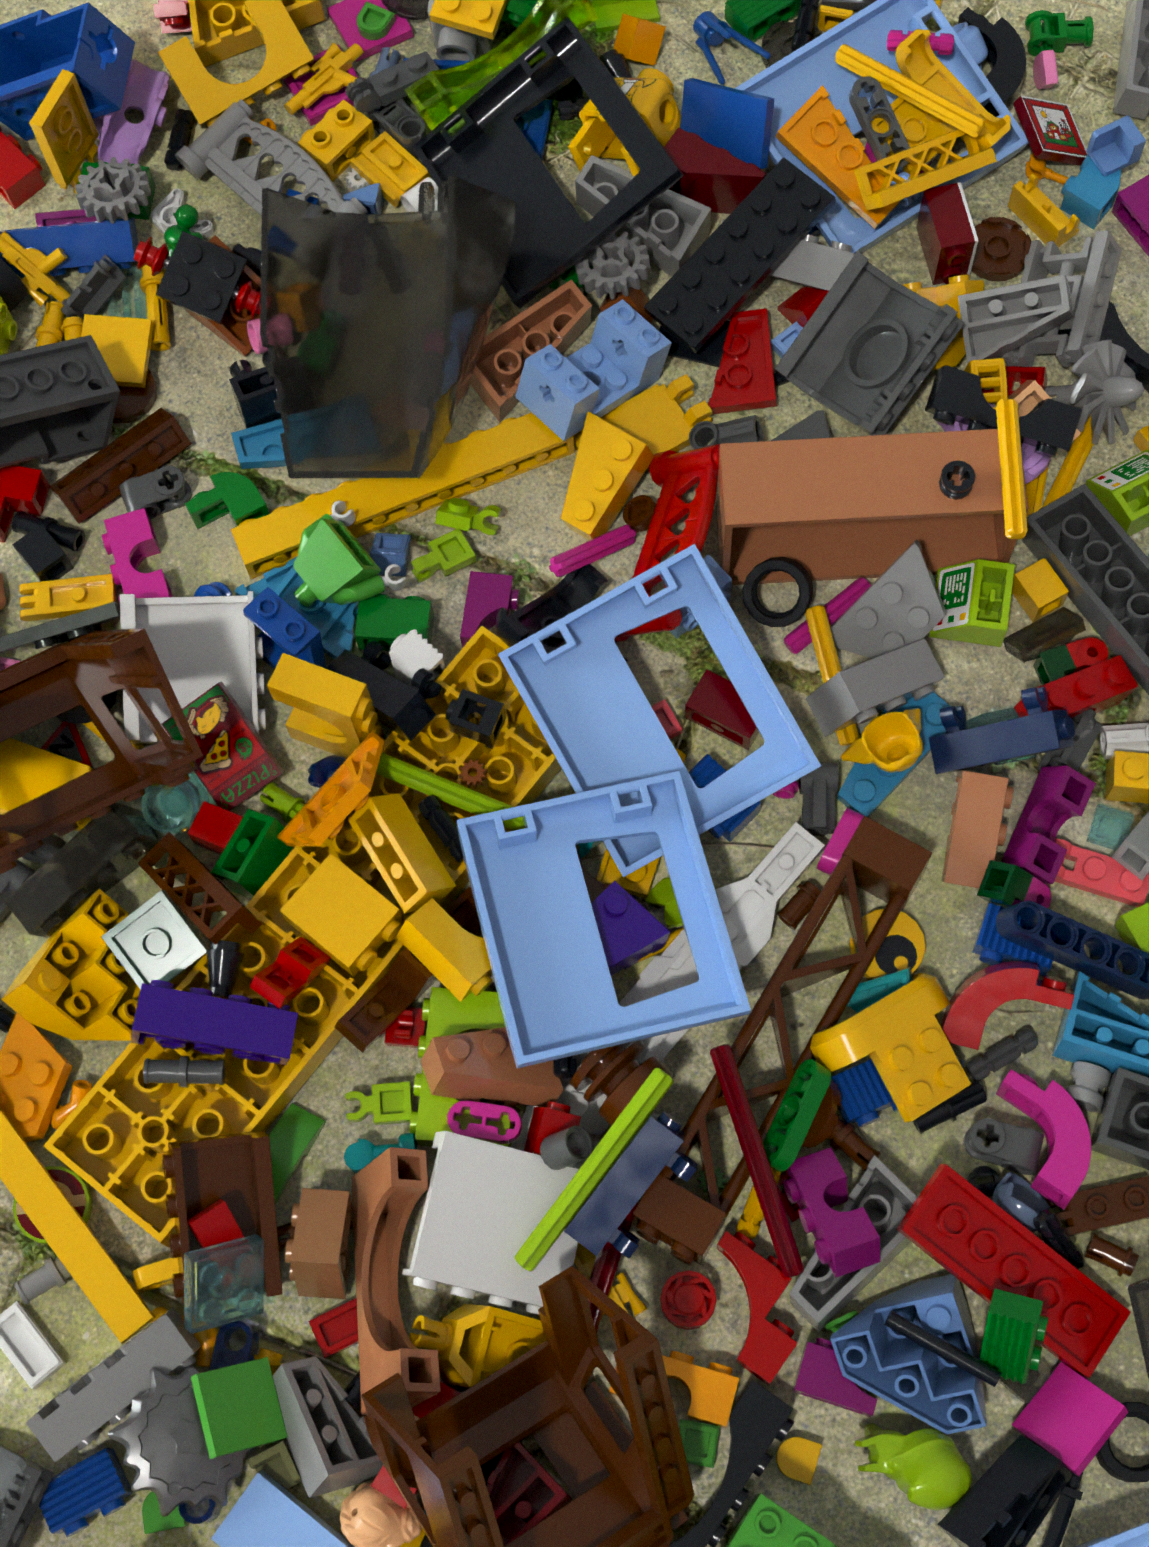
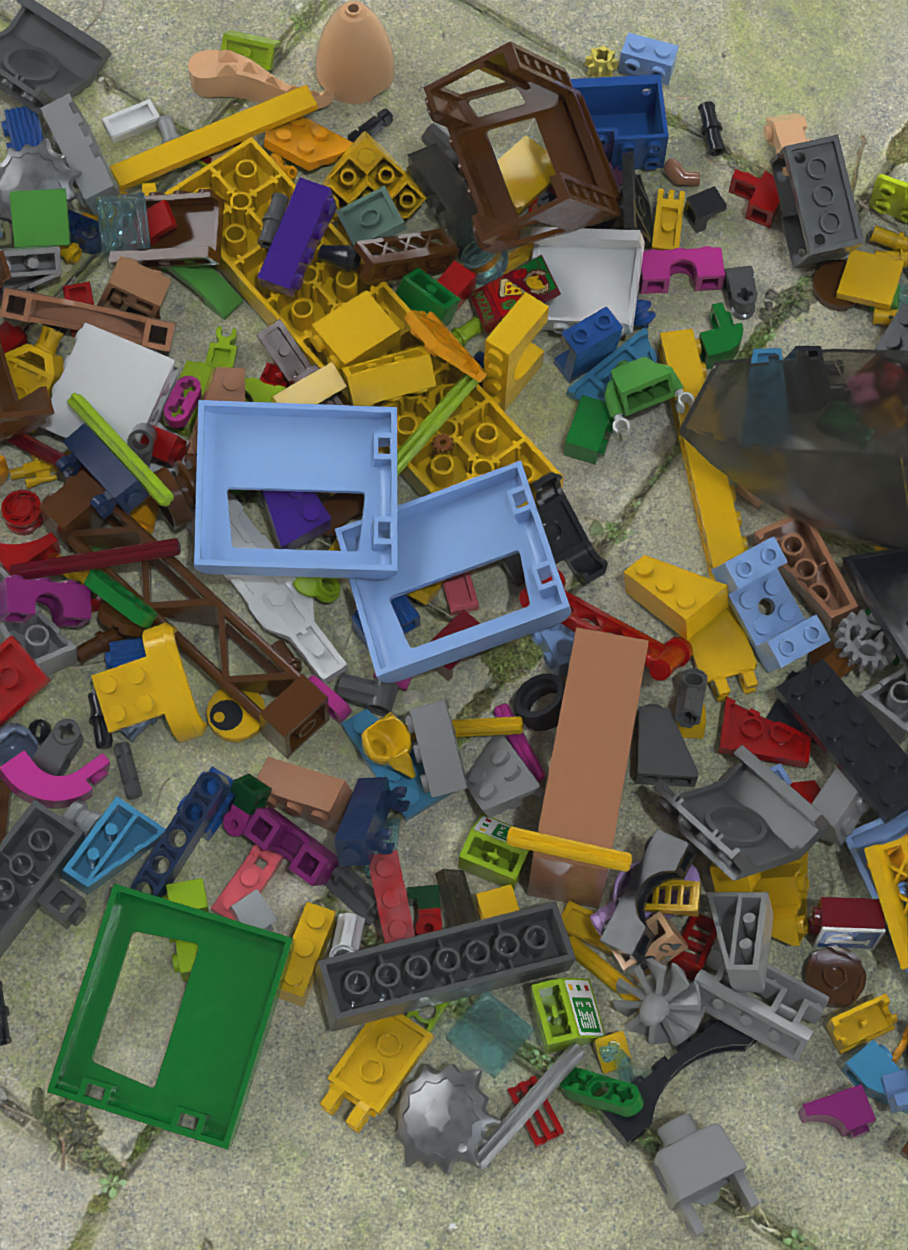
camera: 95 degrees right, 5 degrees down
(63, 535) = (727, 218): black pin -> none
(129, 456) = (773, 272): reddish brown fence -> none
(290, 973) = (319, 289): red slope -> none
(363, 1152) = (189, 338): teal leg -> none
(390, 550) = (654, 442): medium blue slope -> none
(396, 704) = (525, 396): black brick -> none
(412, 653) = (547, 429): white brick -> none
(442, 825) = (410, 413): black axle -> none
(446, 553) = (639, 478): lime plate -> none
(461, 515) = (671, 495): lime plate -> none
(473, 705) = (474, 454): black brick -> none
(484, 599) = (590, 494): magenta arch -> none
(592, 550) = (613, 576): dark pink axle -> none
(639, 512) = (644, 622): reddish brown tile -> none
(877, 988) = (202, 691): teal plate -> none
(960, 468) = (560, 807): black bush -> none
(992, 987) = (173, 773): red arch -> none
(1109, 827) = (283, 904): clear light blue tile -> none

